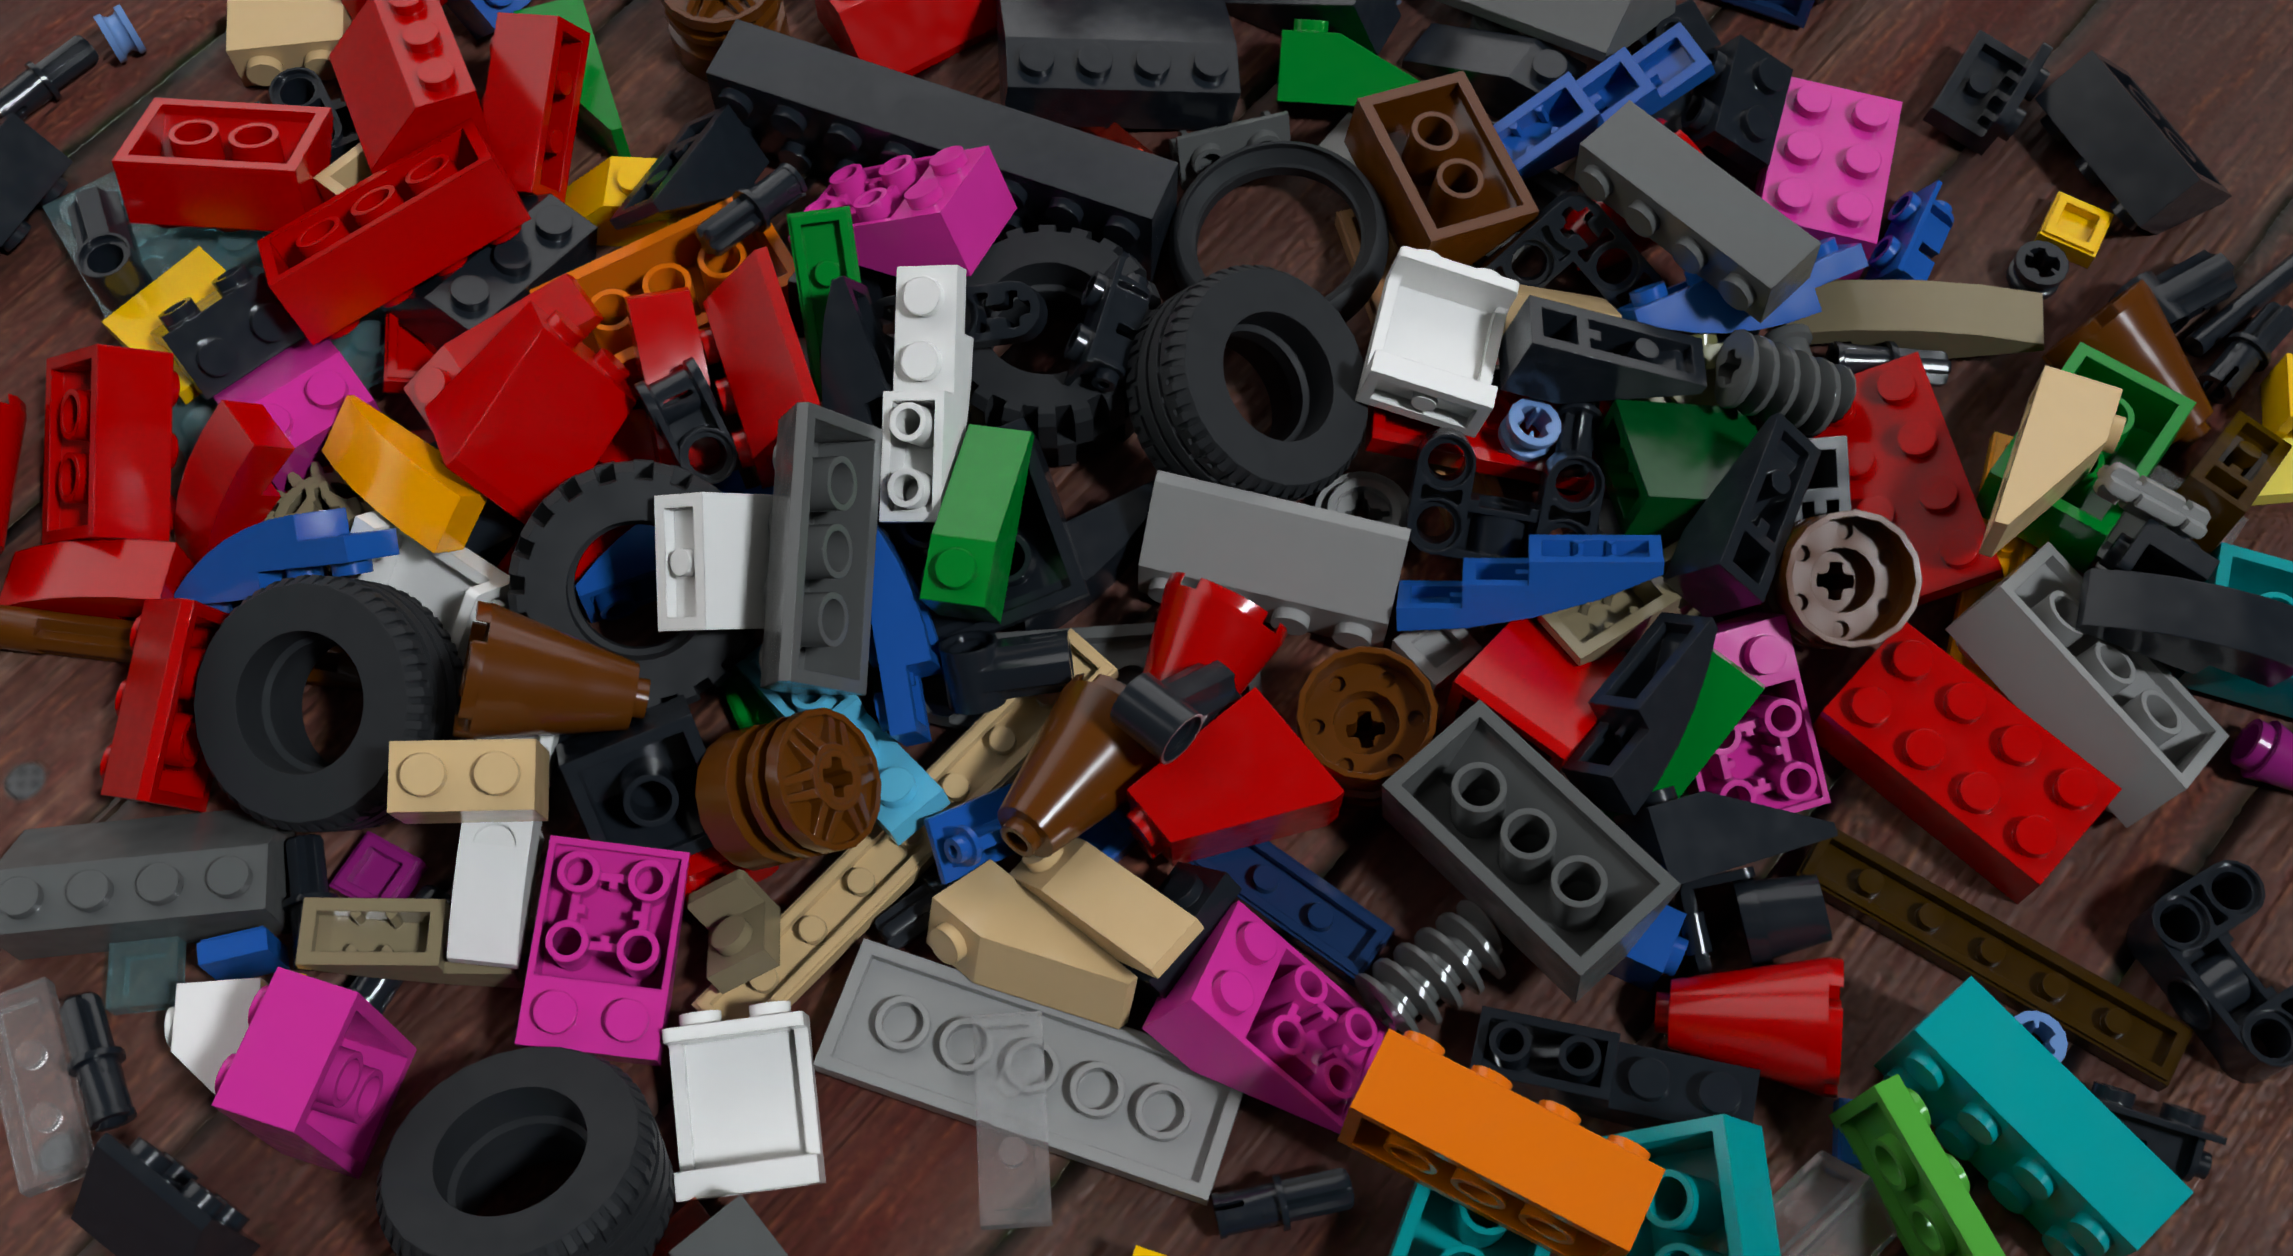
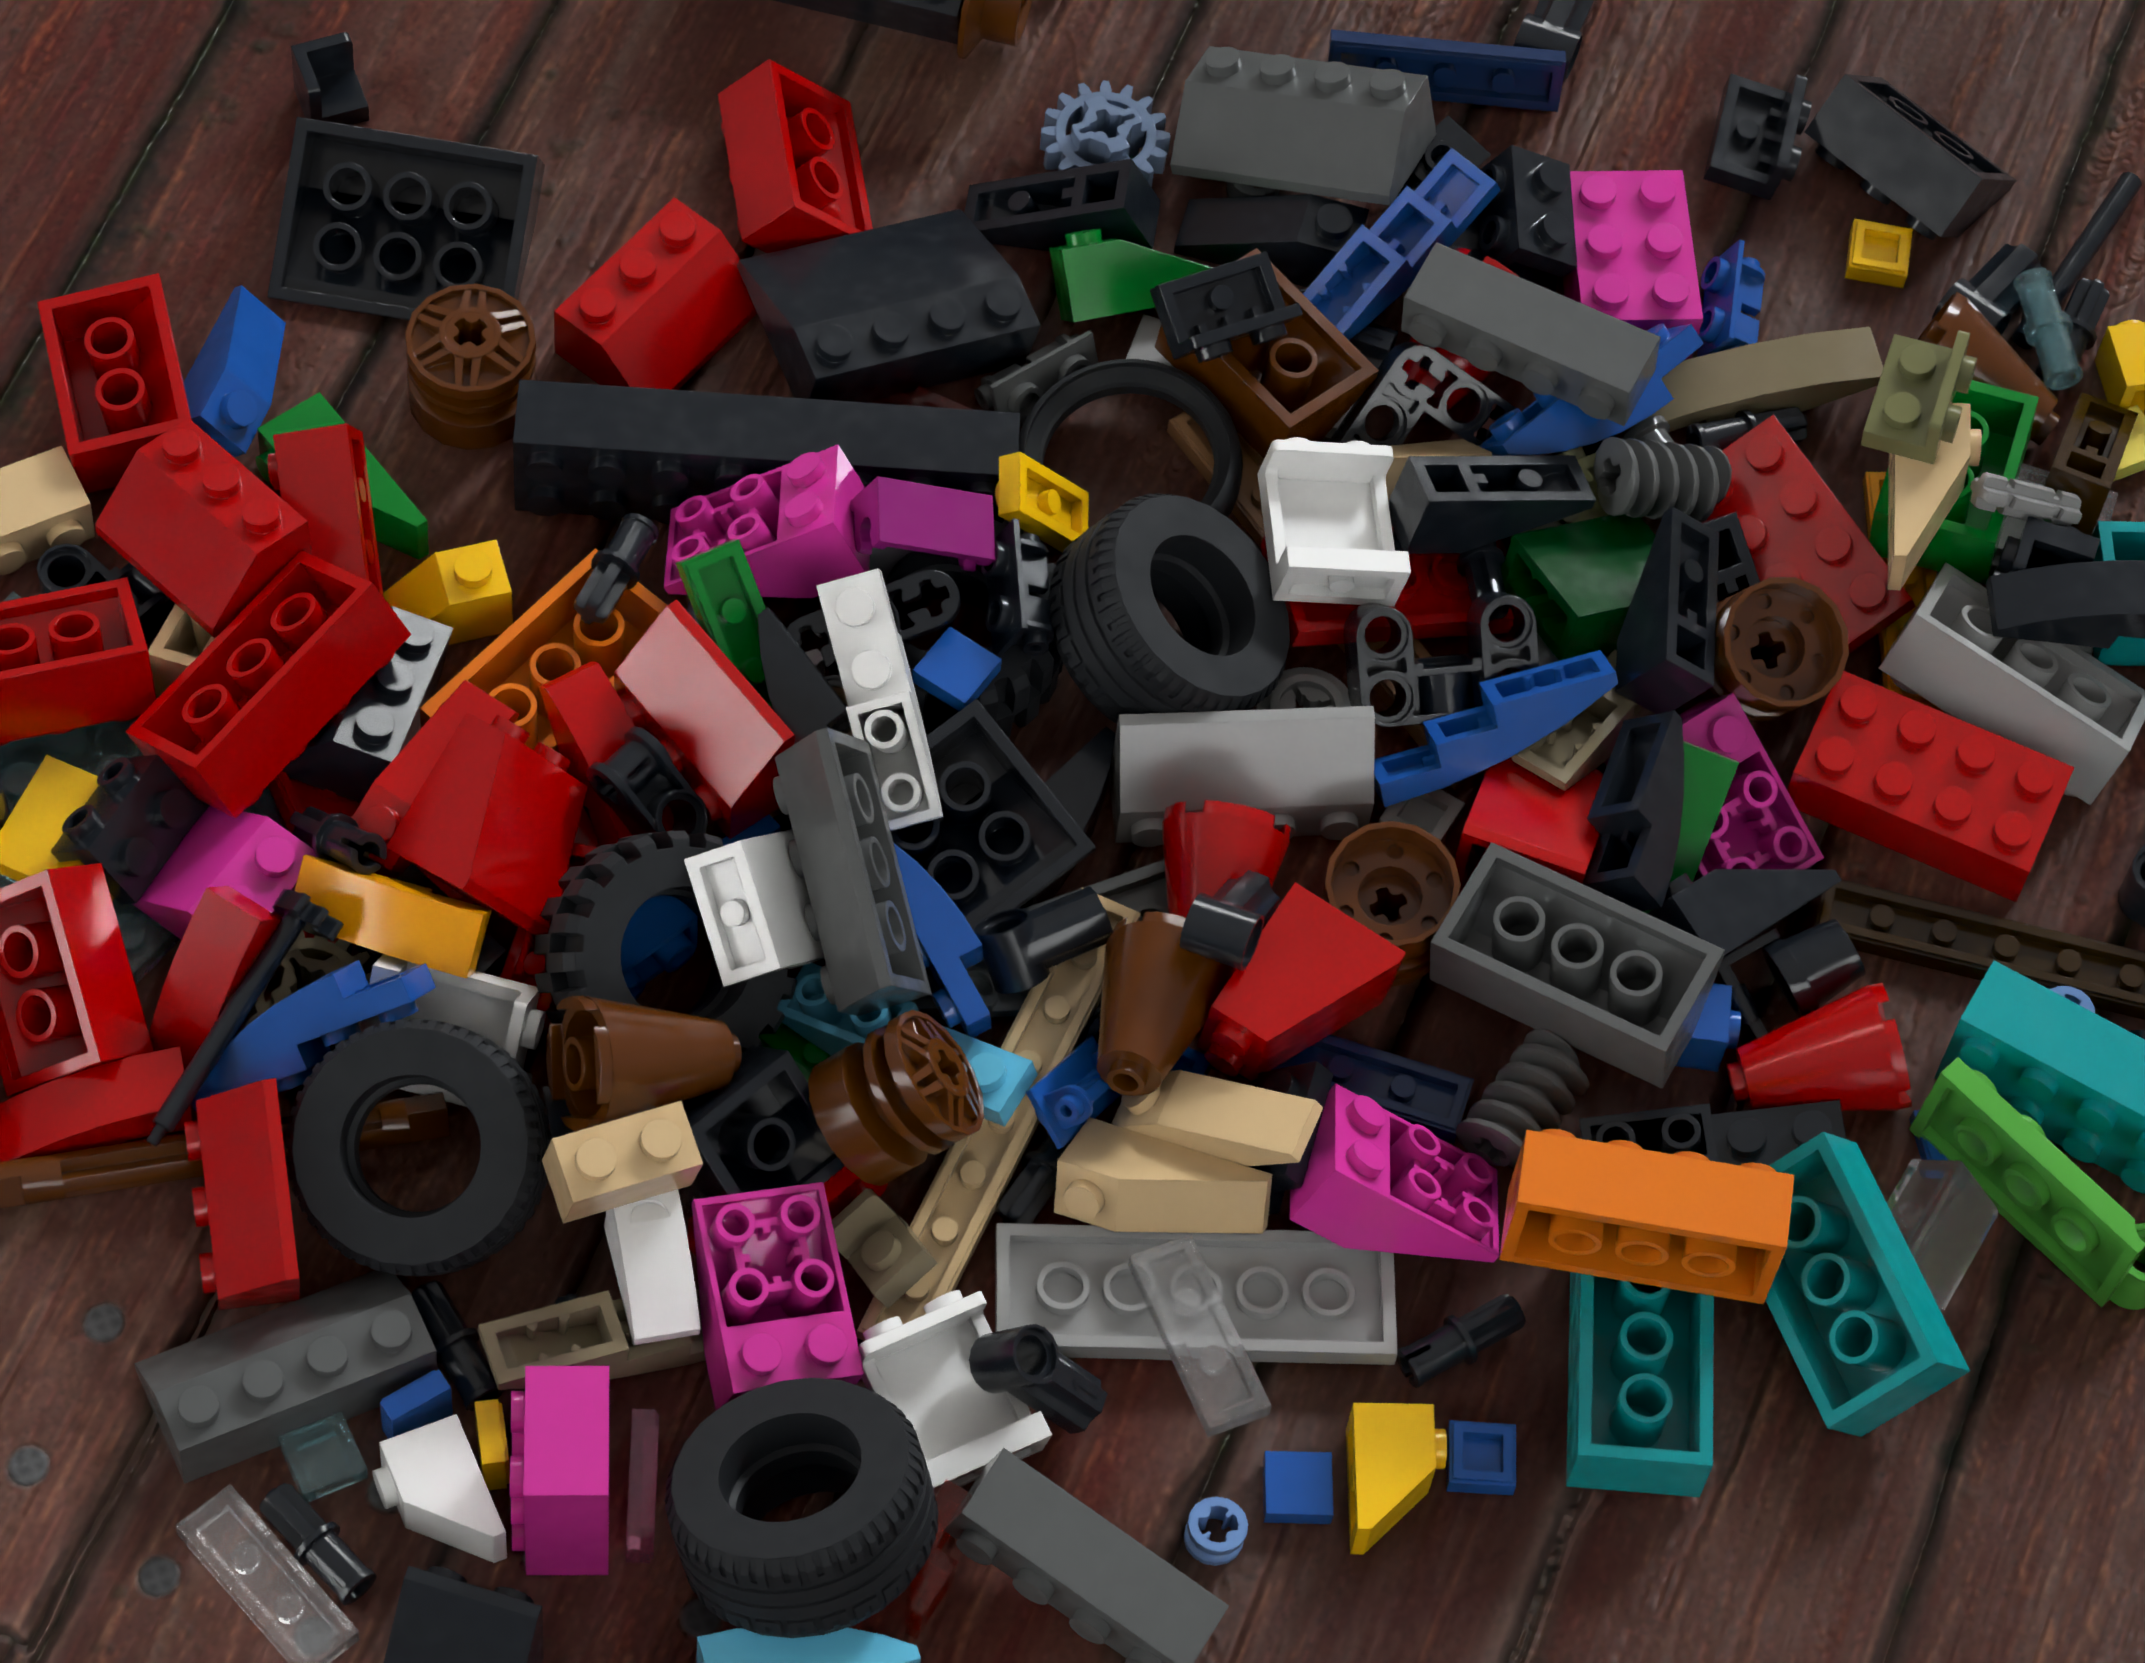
camera: 25 degrees left, 5 degrees down
(308, 451) = (297, 915): none -> black piece
(378, 871) = (501, 1295): magenta tile -> none
(388, 391) = (339, 839): none -> black axle
(431, 1062) = (642, 1486): none -> clear pink tile
(695, 171) = (533, 543): black slope -> none
(834, 1116) = (1032, 1370): none -> black piece
(978, 525) = (975, 809): green slope -> none
(1021, 384) = (956, 669): none -> blue tile
(1038, 236) = (925, 521): none -> magenta hinge
(1165, 245) = (1041, 500): none -> yellow plate
(1403, 112) = (1221, 306): none -> black bracket
(1534, 413) = (1448, 571): medium blue bush -> none
(2047, 259) = (1863, 290): black bush -> none
(2068, 368) = (1916, 397): none -> olive bracket
(2224, 340) = (2048, 328): none -> clear light blue pin

